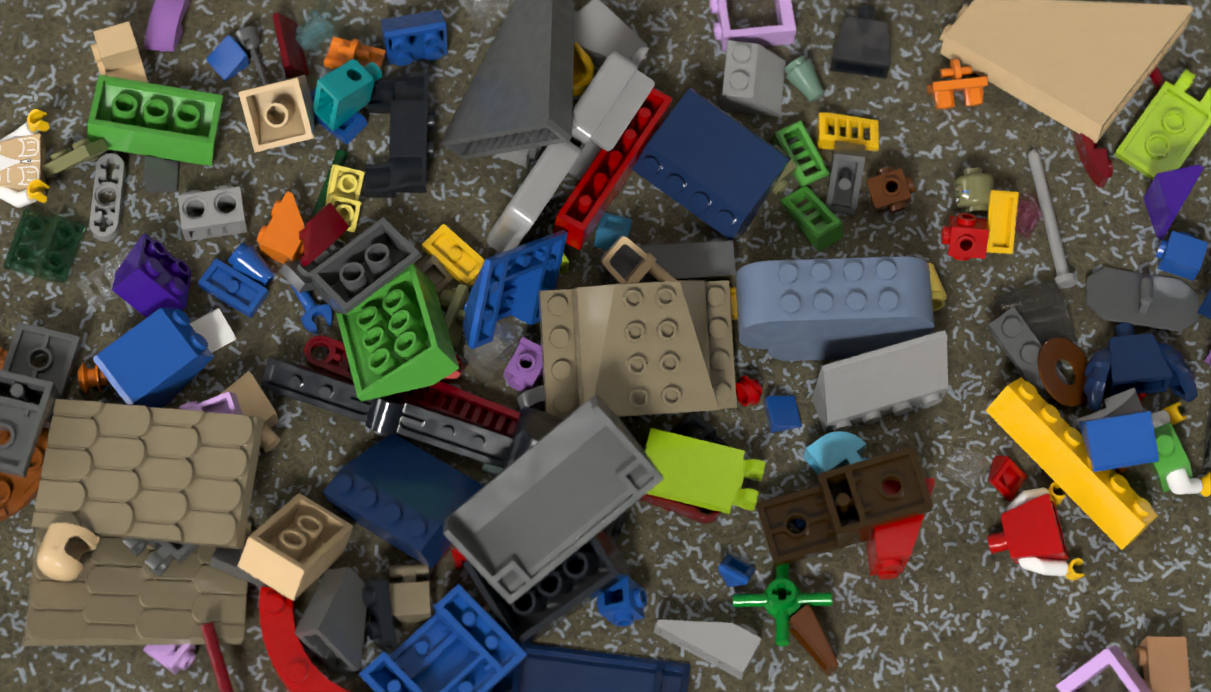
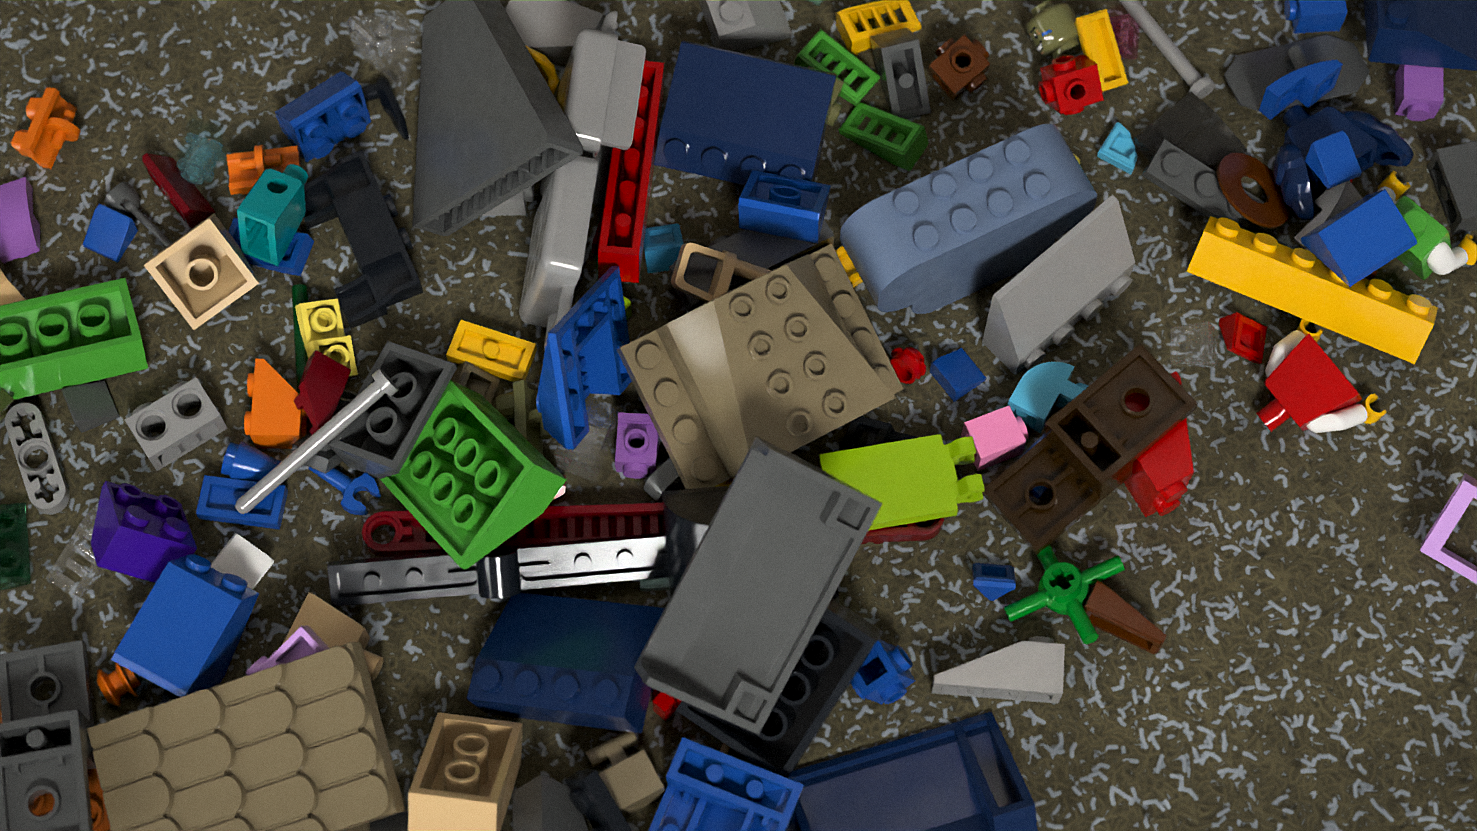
camera: 20 degrees left, 0 degrees up
(363, 247) = (317, 441): none -> light grey bar
(466, 44) = (384, 91): none -> black bar
(708, 238) = (783, 206): none -> blue slope
(785, 470) = (996, 437): none -> bright pink brick
(981, 300) = (1119, 149): none -> medium azure tile
(1130, 374) = (1333, 159): none -> blue slope
(1141, 309) = (1304, 84): none -> blue slope

